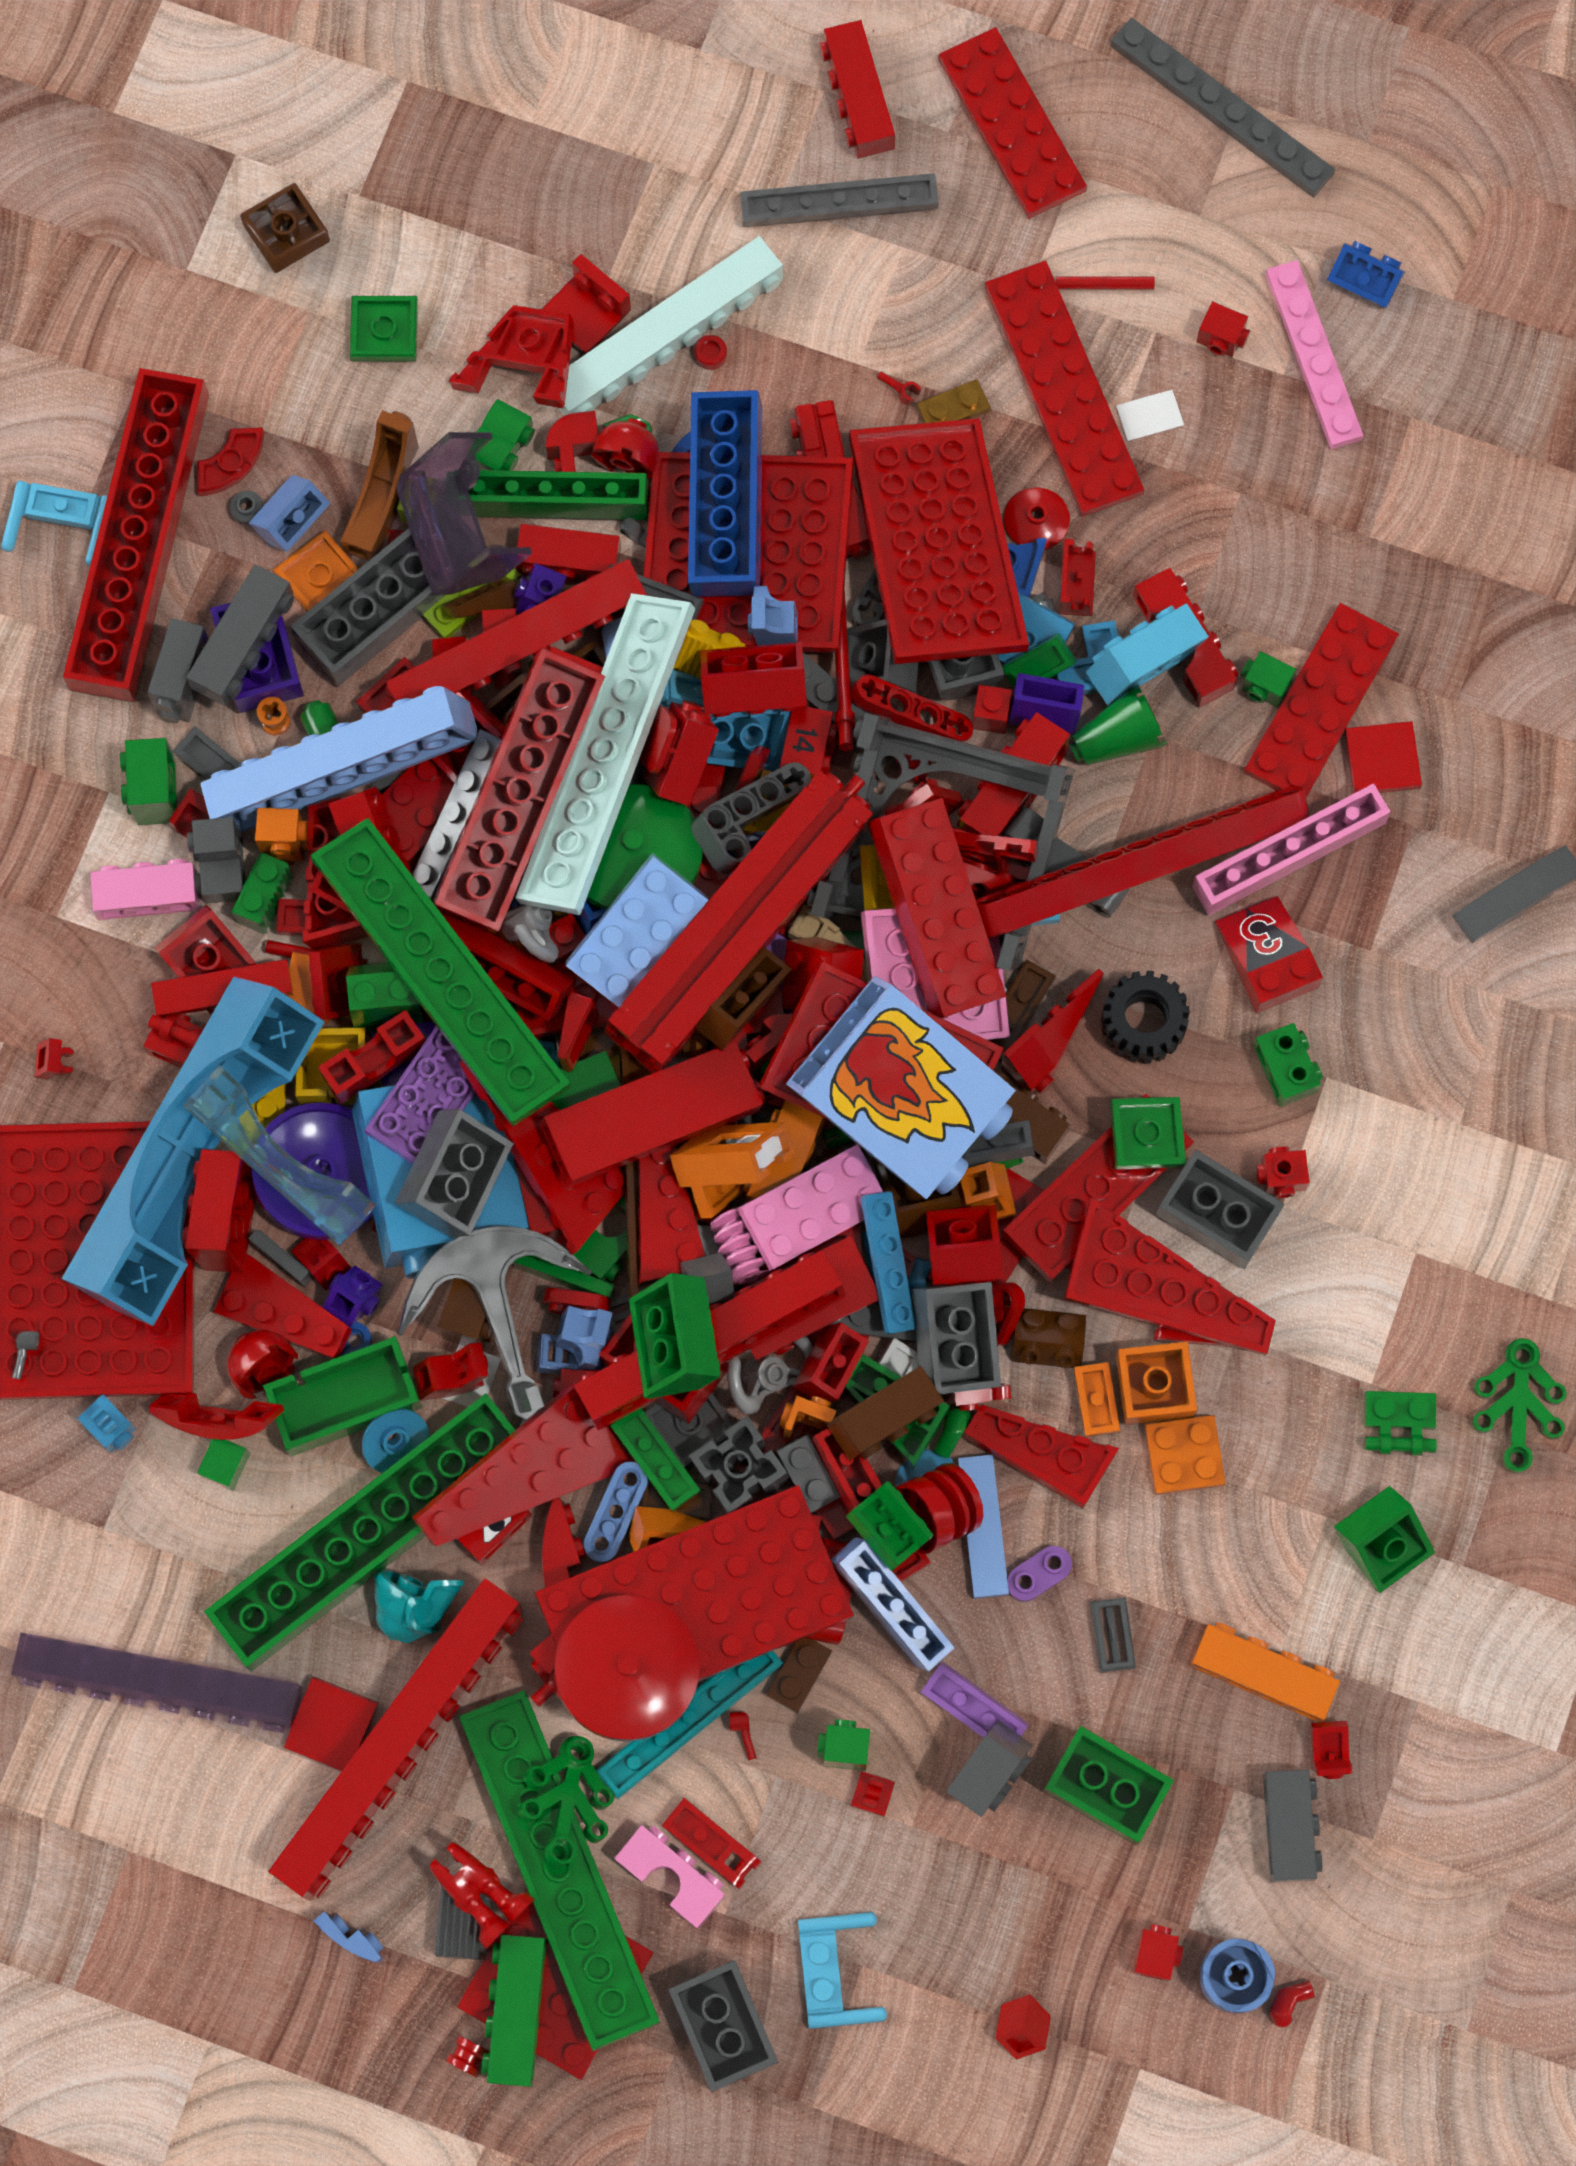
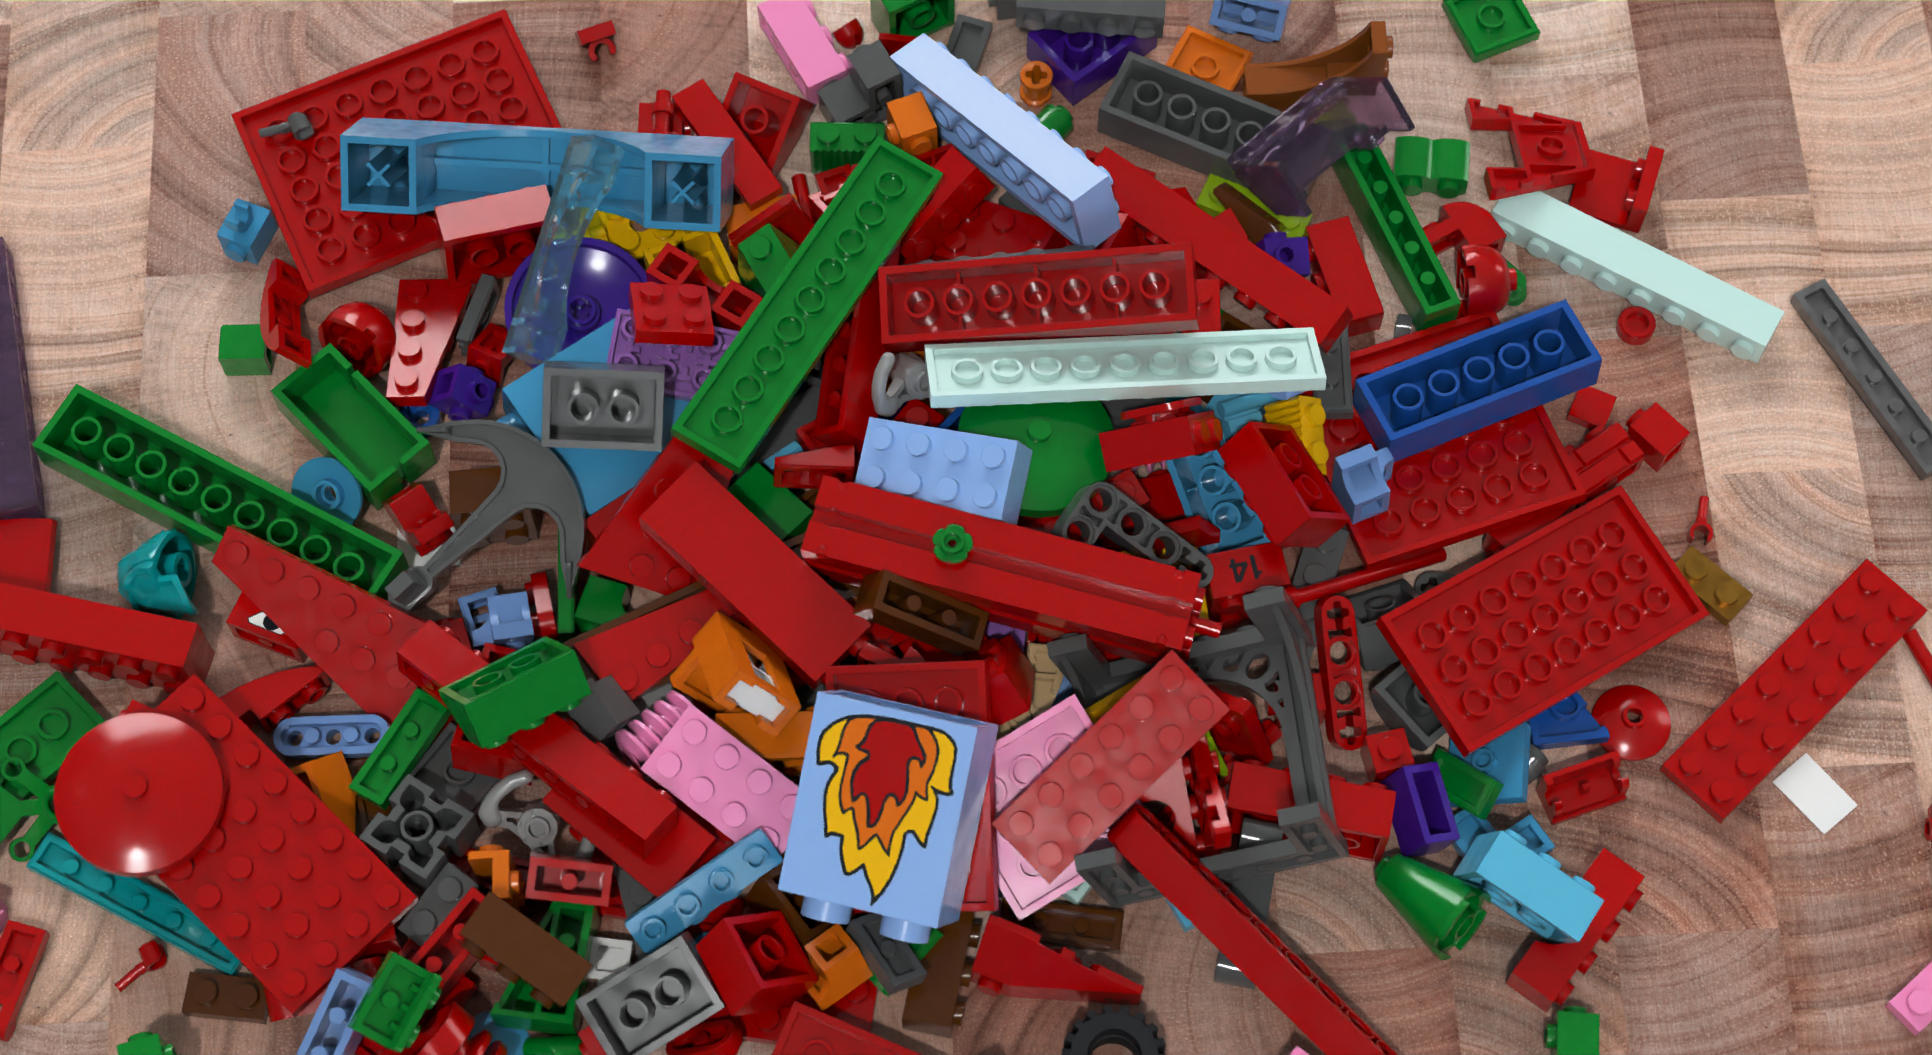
camera: 65 degrees right, 10 degrees down
(147, 848) = (849, 34): none -> red hinge
(393, 1087) = (671, 314): none -> red plate
(714, 954) = (952, 554): none -> green plate
(773, 420) = (1591, 408): none -> red tile
(815, 383) = (1656, 435): none -> red brick

